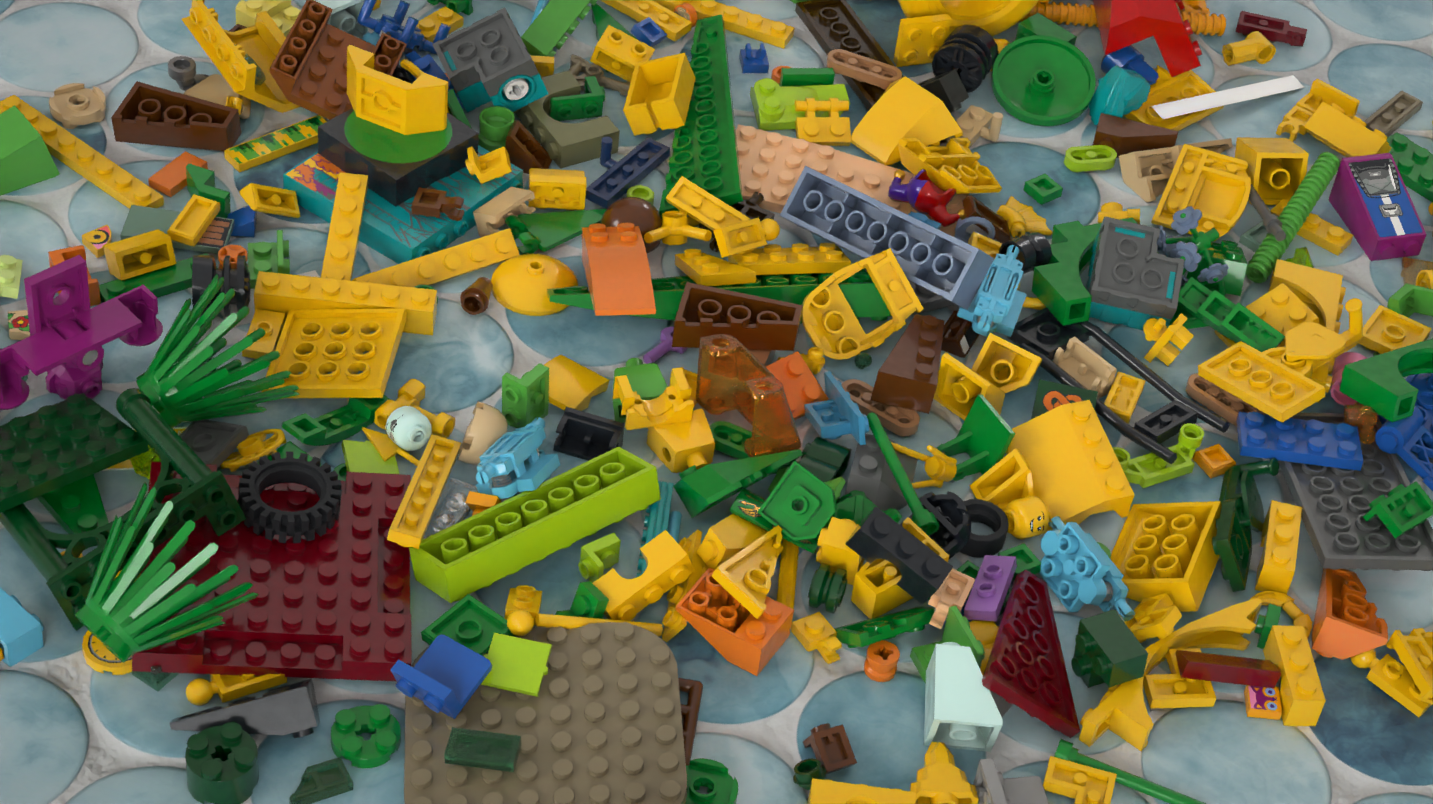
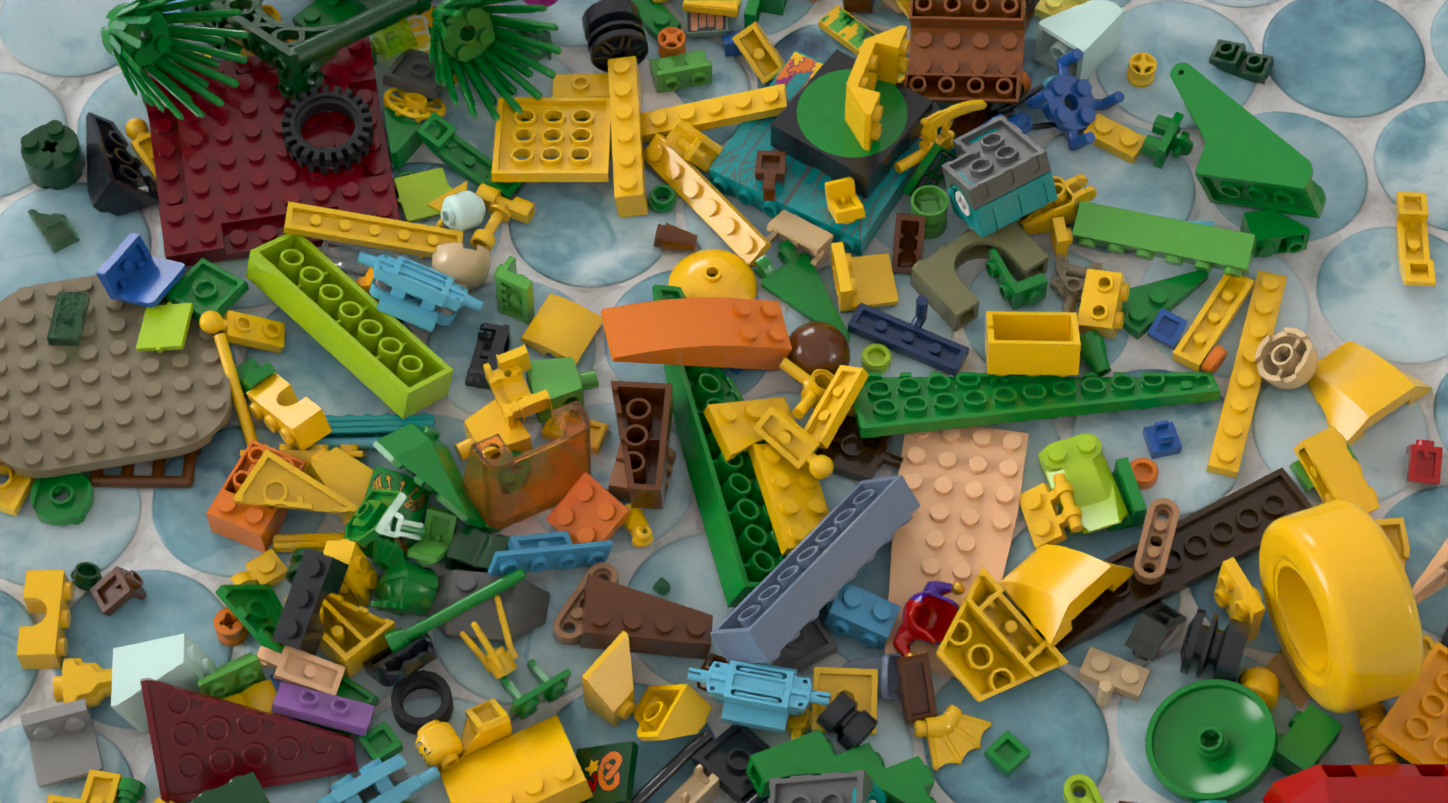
camera: 90 degrees right, 15 degrees up
(365, 719) = (93, 239): green plate -> none
(377, 255) = (693, 145): none -> yellow hips
(599, 556) = (326, 380): lime bracket -> none
(832, 321) = (687, 546): yellow slope -> none

